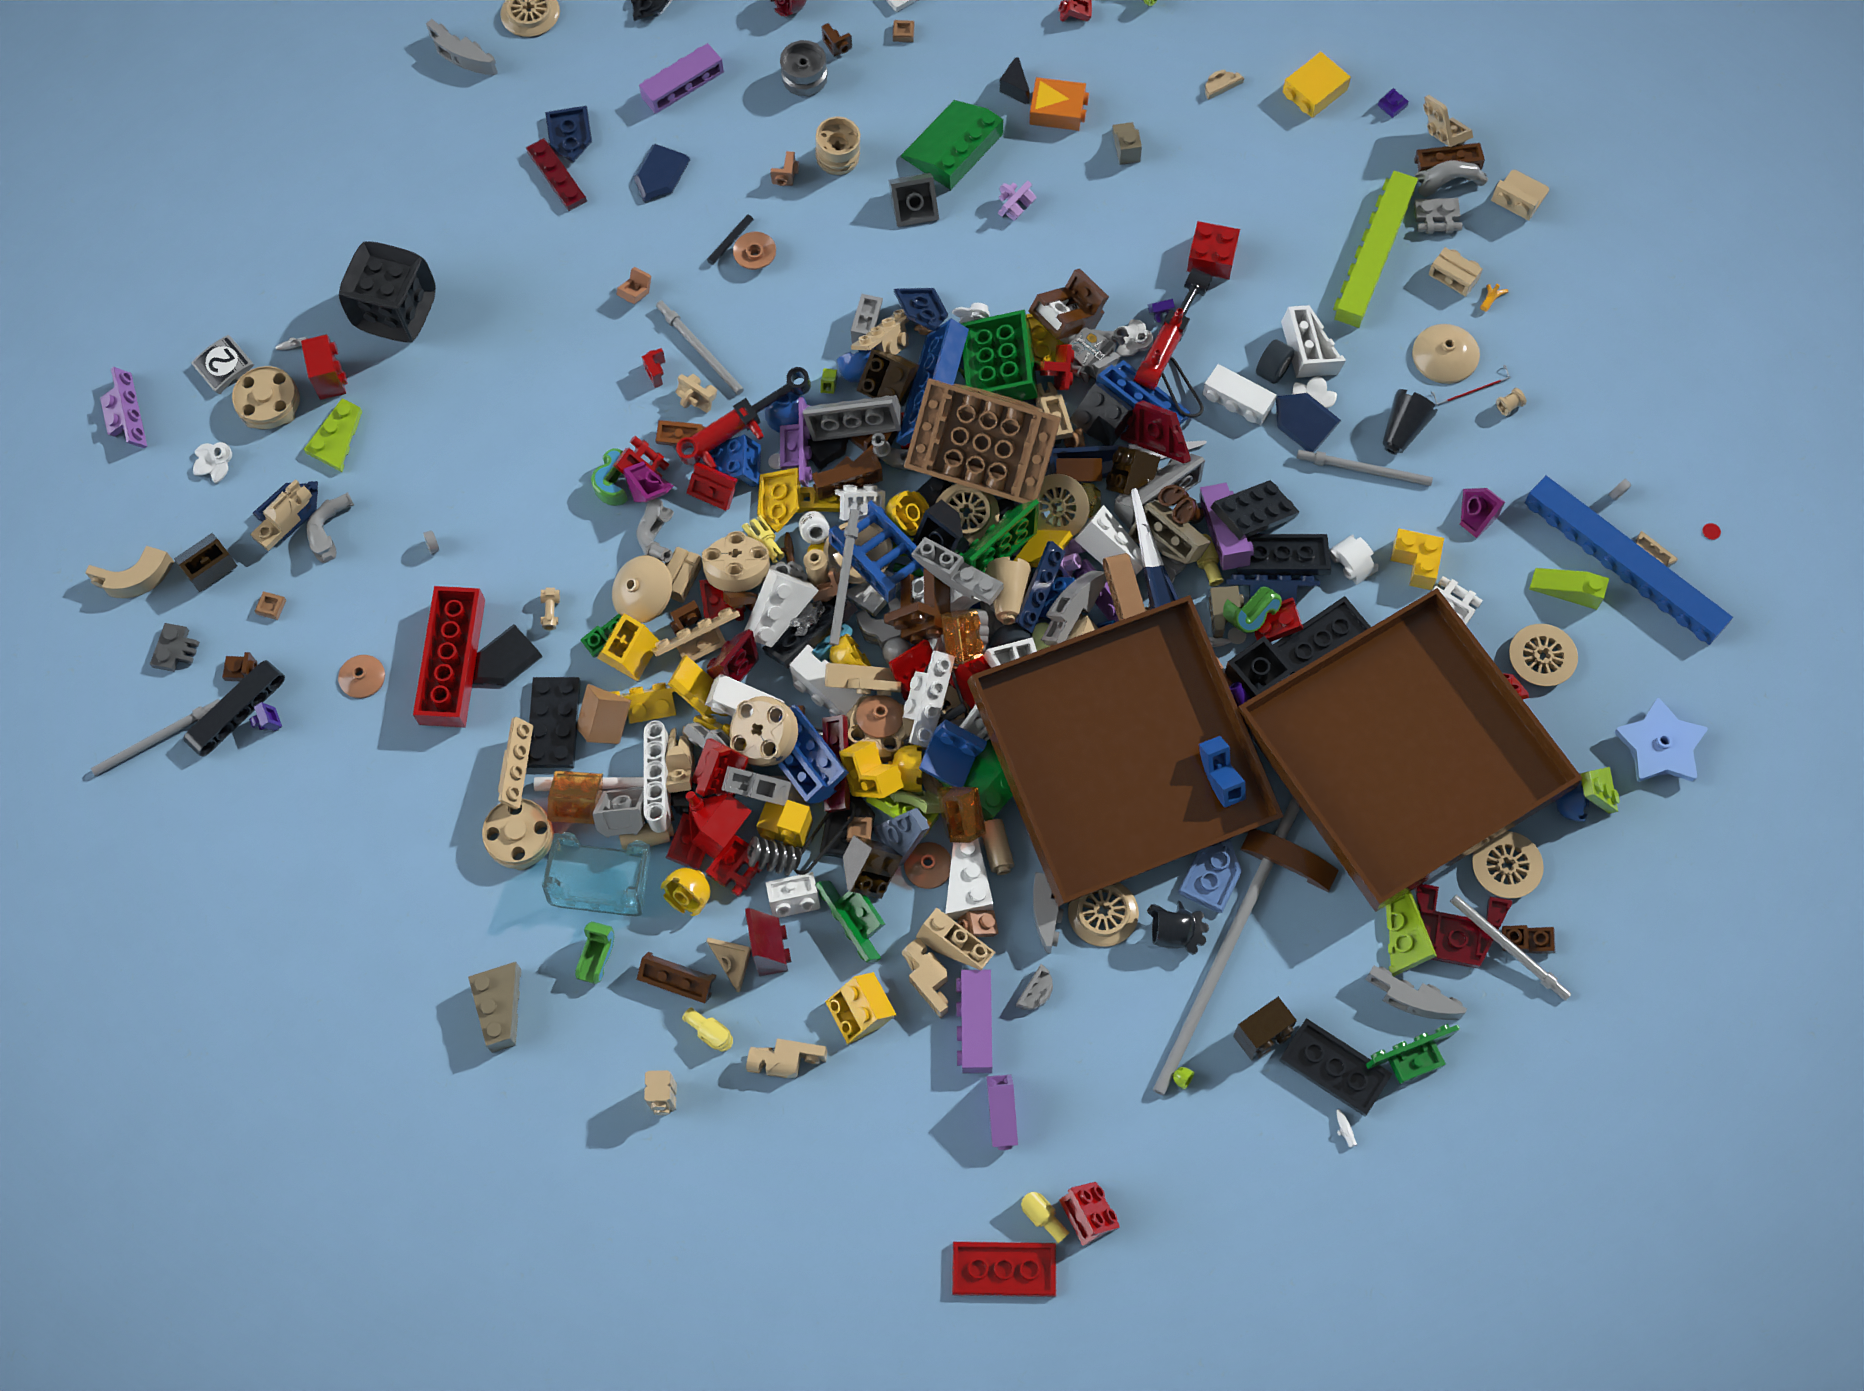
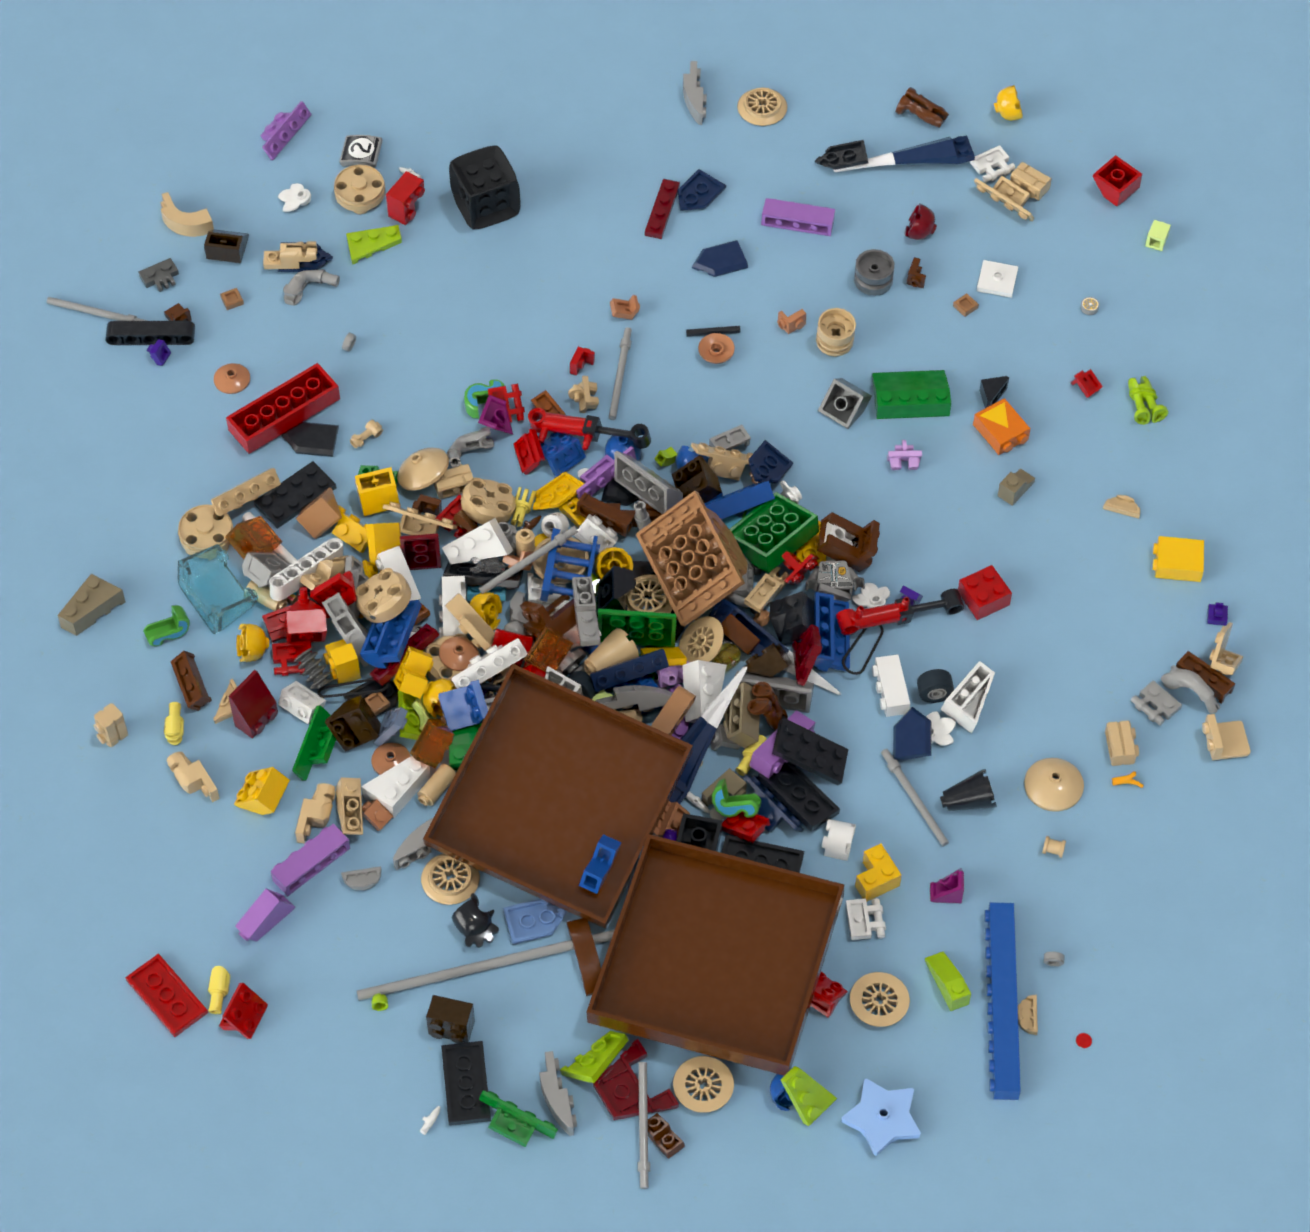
camera: 45 degrees right, 10 degrees down
(1375, 250) = (1088, 684): lime brick -> none
(1474, 390) = (1046, 822): red piece -> none

